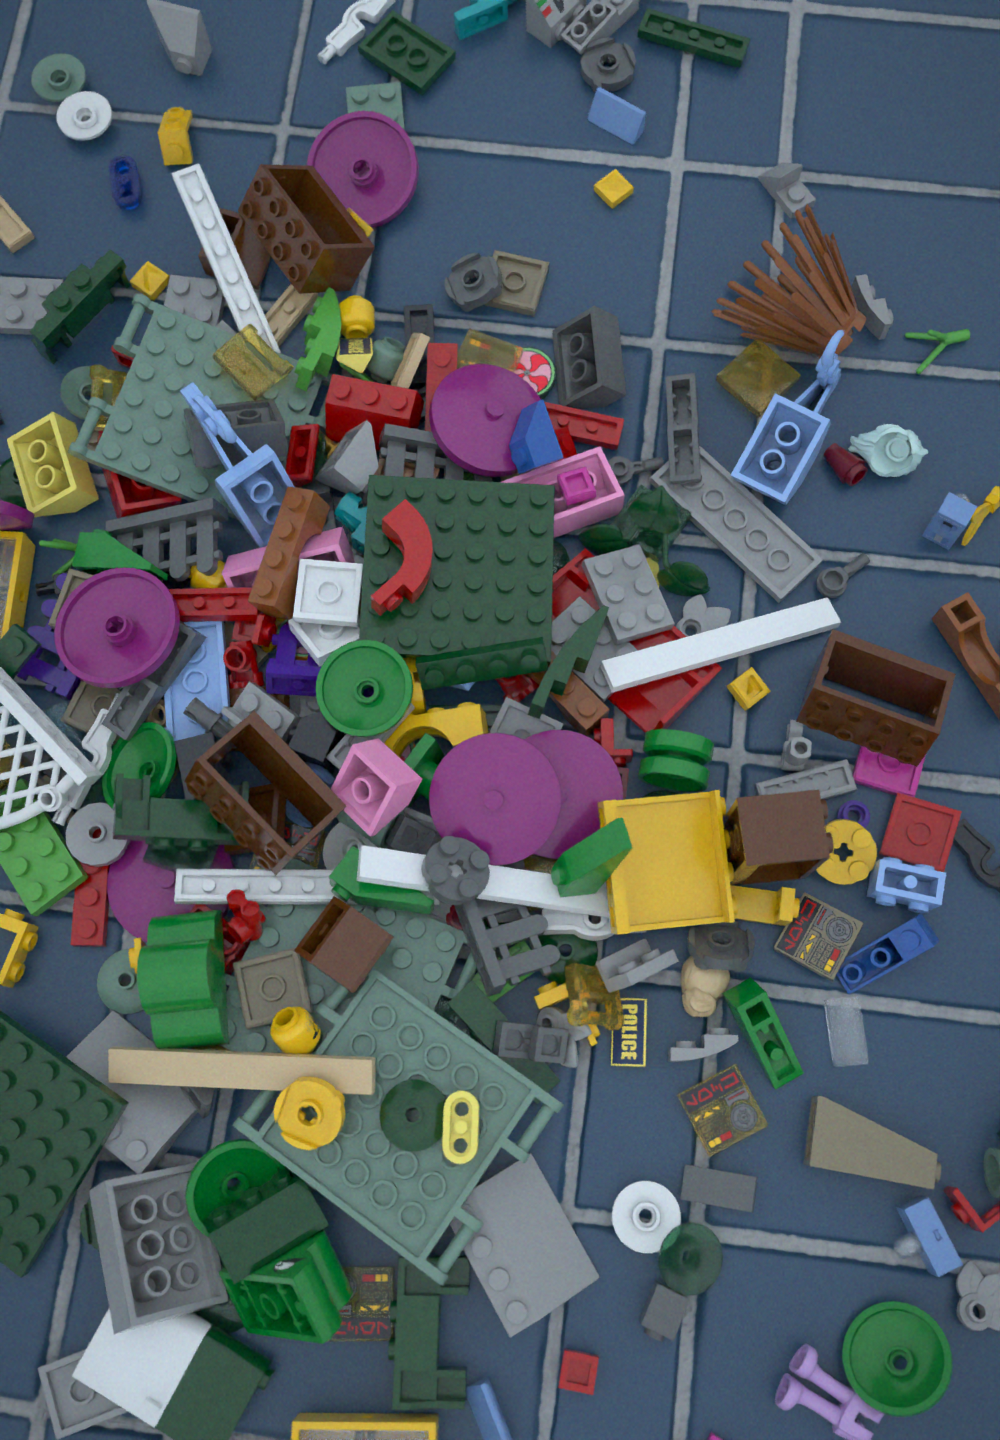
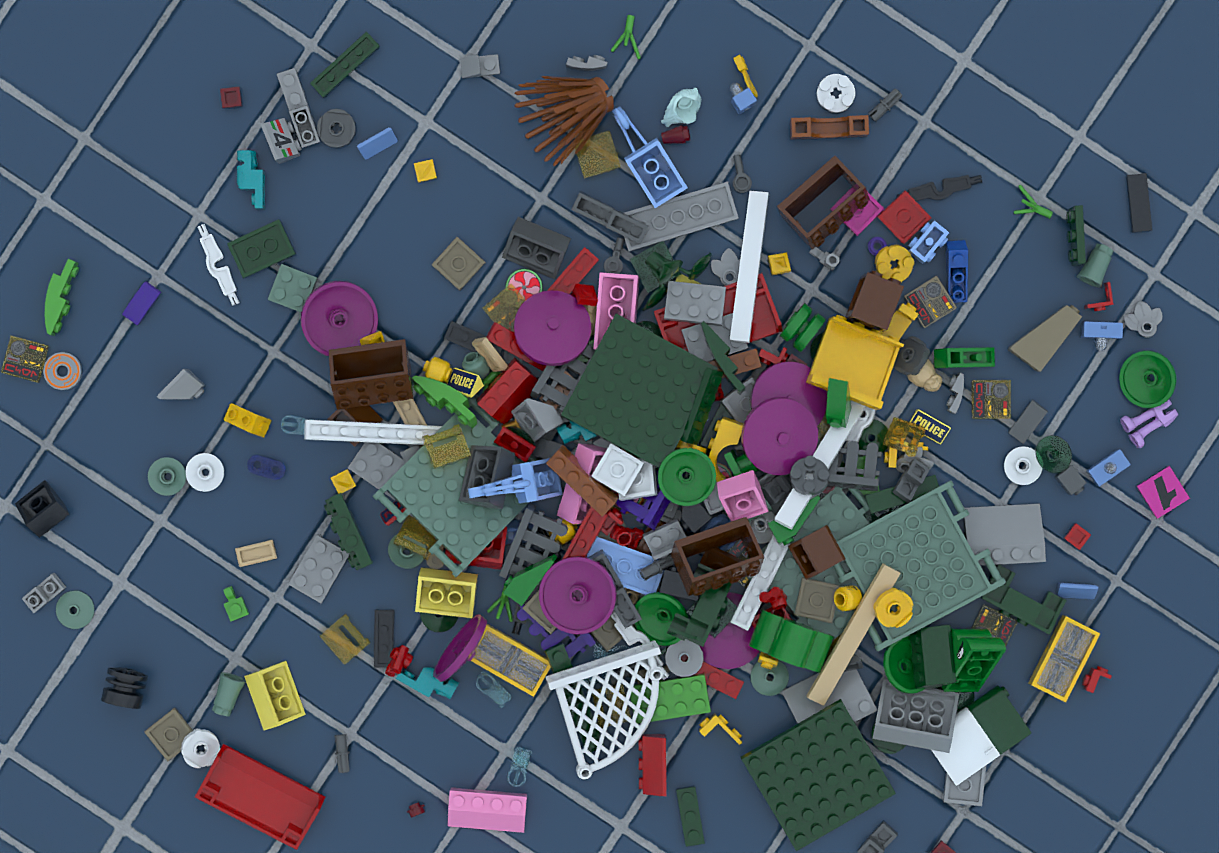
camera: 65 degrees left, 15 degrees up
(412, 537) = (626, 411): red arch -> none
(426, 1129) = (912, 549): dark green dish -> none
(460, 1127) = (937, 536): light yellow plate -> none
(483, 290) = (458, 283): dark grey plate -> none
(534, 439) = (582, 310): blue slope -> none
(576, 485) = (619, 299): dark pink tile -> none
(633, 965) = (898, 407): light grey bracket -> none
(717, 1366) = (1108, 467): none -> medium blue piece
(830, 779) = (849, 263): light grey plate -> none
(846, 1031) = (985, 314): clear plate -> none

